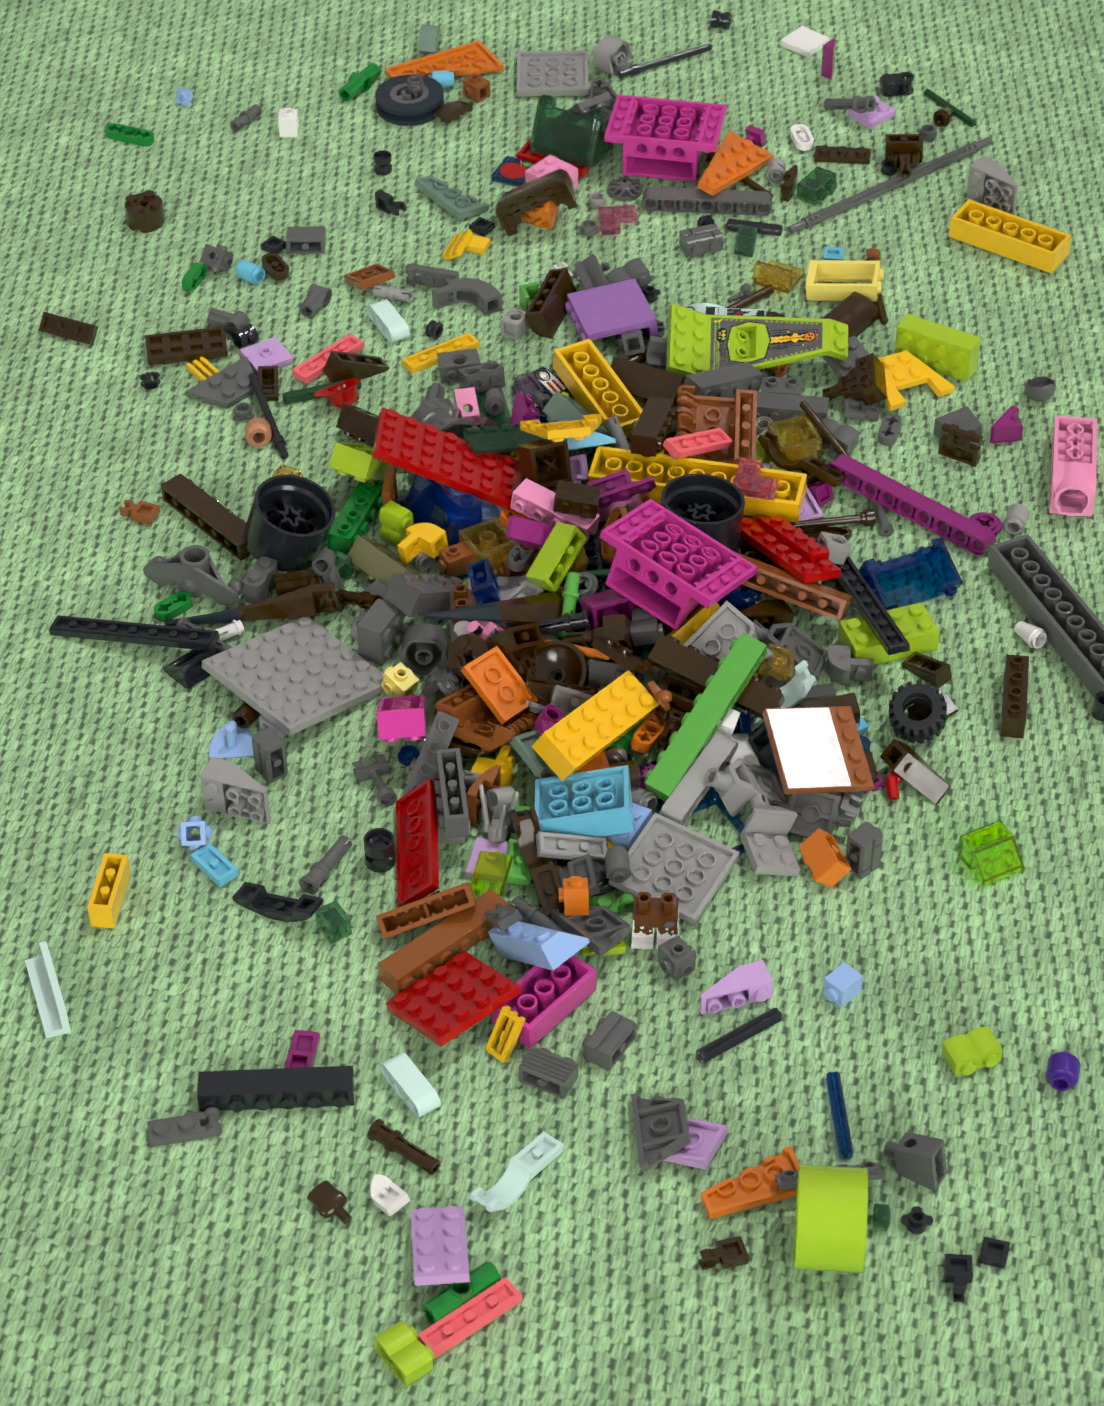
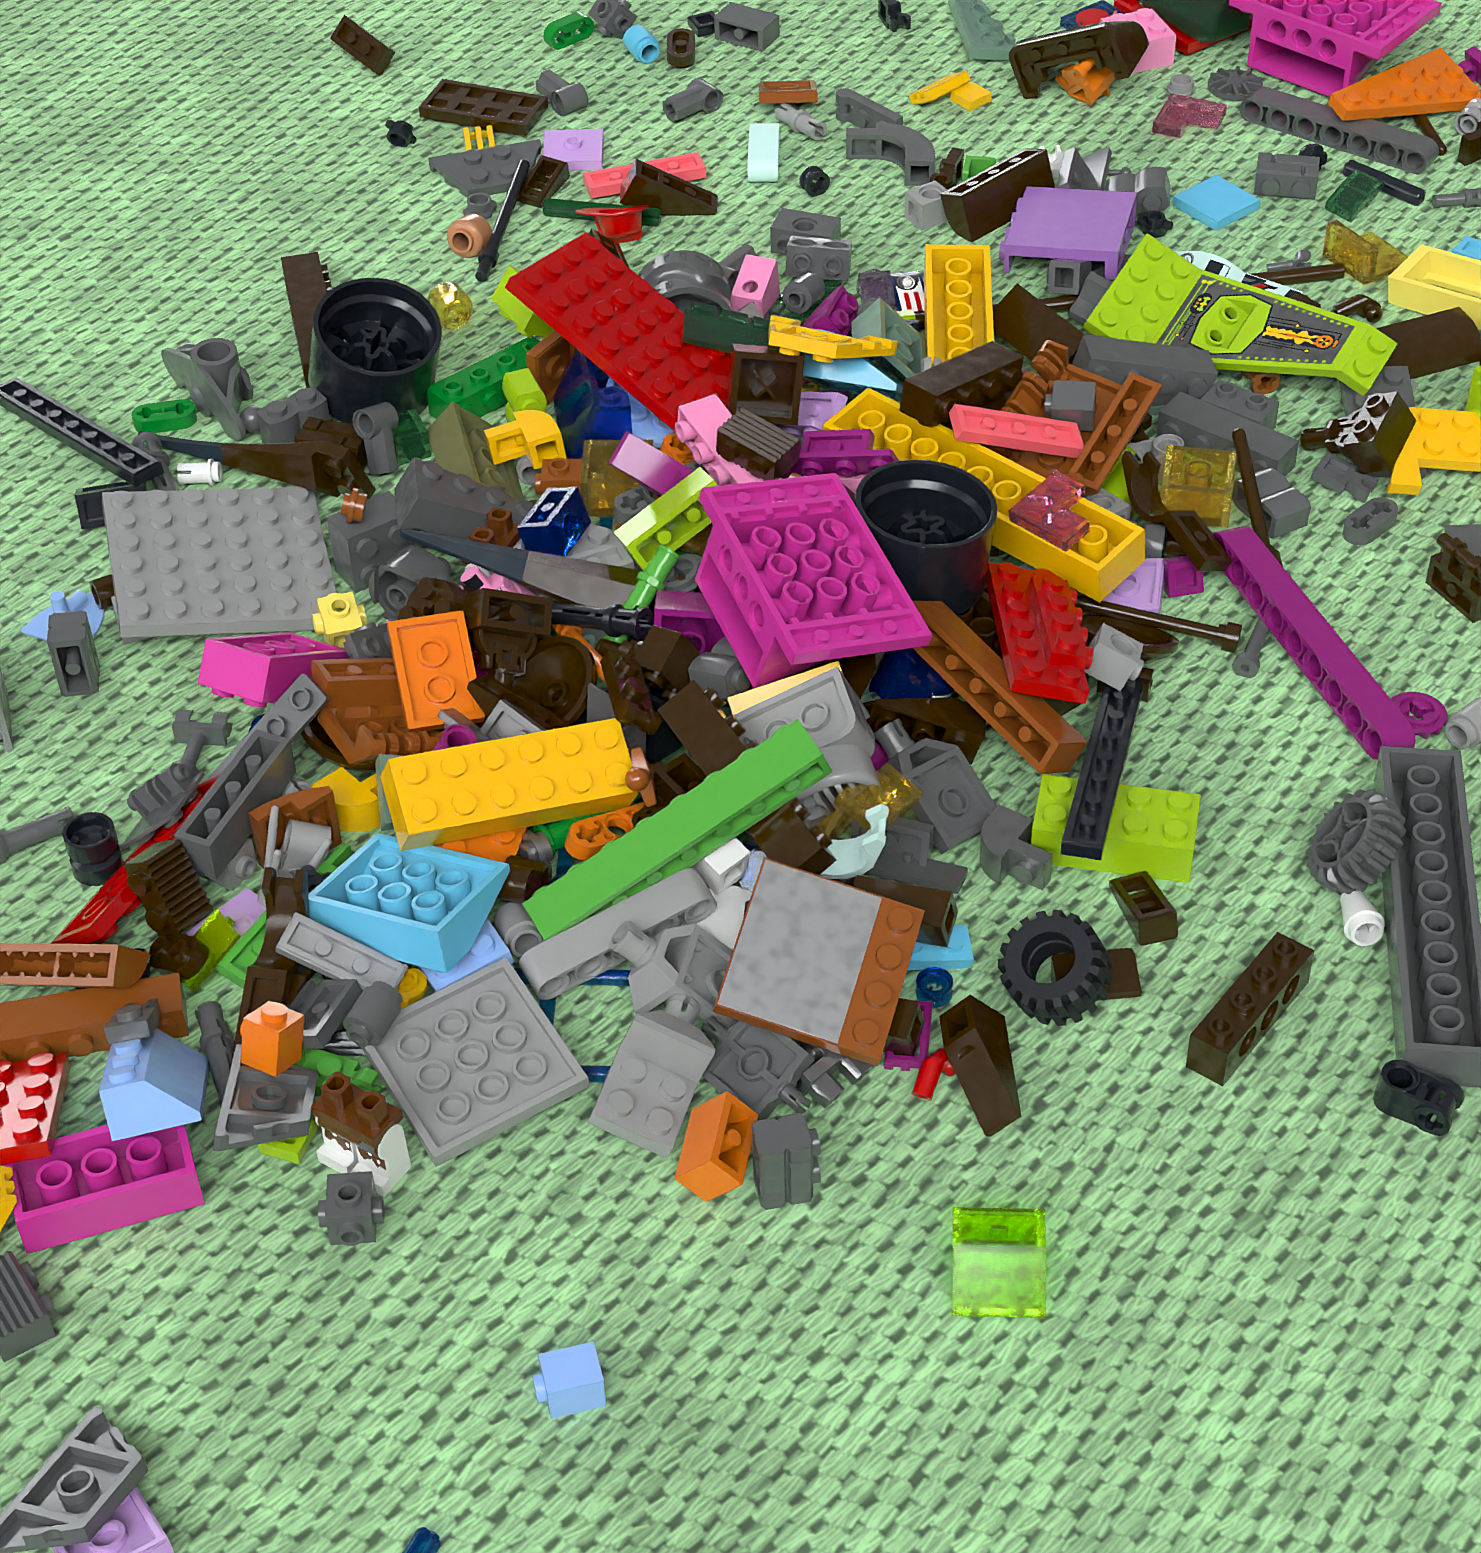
camera: 30 degrees right, 0 degrees up
(143, 512) = (238, 287): dark orange plate -> none
(243, 337) = (564, 116): black wheel -> none
(363, 599) = (383, 481): dark brown pin -> none
(374, 613) = (354, 506): none -> dark orange plate
(400, 814) = (161, 801): none -> dark grey hinge
(428, 357) = (763, 214): yellow tile -> none
(451, 849) = (167, 887): none -> dark brown brick
(478, 881) = (178, 954): none -> dark brown plate
(482, 226) = (995, 76): black tile -> none
(508, 297) = (950, 169): none -> dark brown plate
(589, 228) = (1139, 117): flat silver plate -> none
(609, 1040) = (139, 1298): dark grey brick -> none
(672, 268) = (1216, 202): none -> medium azure tile
(713, 417) = (1072, 403): none -> dark grey brick
(738, 1035) = (344, 1387): black axle -> none
(741, 986) = (408, 1304): lavender slope -> none
(797, 307) = (1361, 306): none -> dark brown arm
(913, 576) = (1220, 751): windscreen -> none
(1010, 603) = (1355, 842): none -> dark grey gear

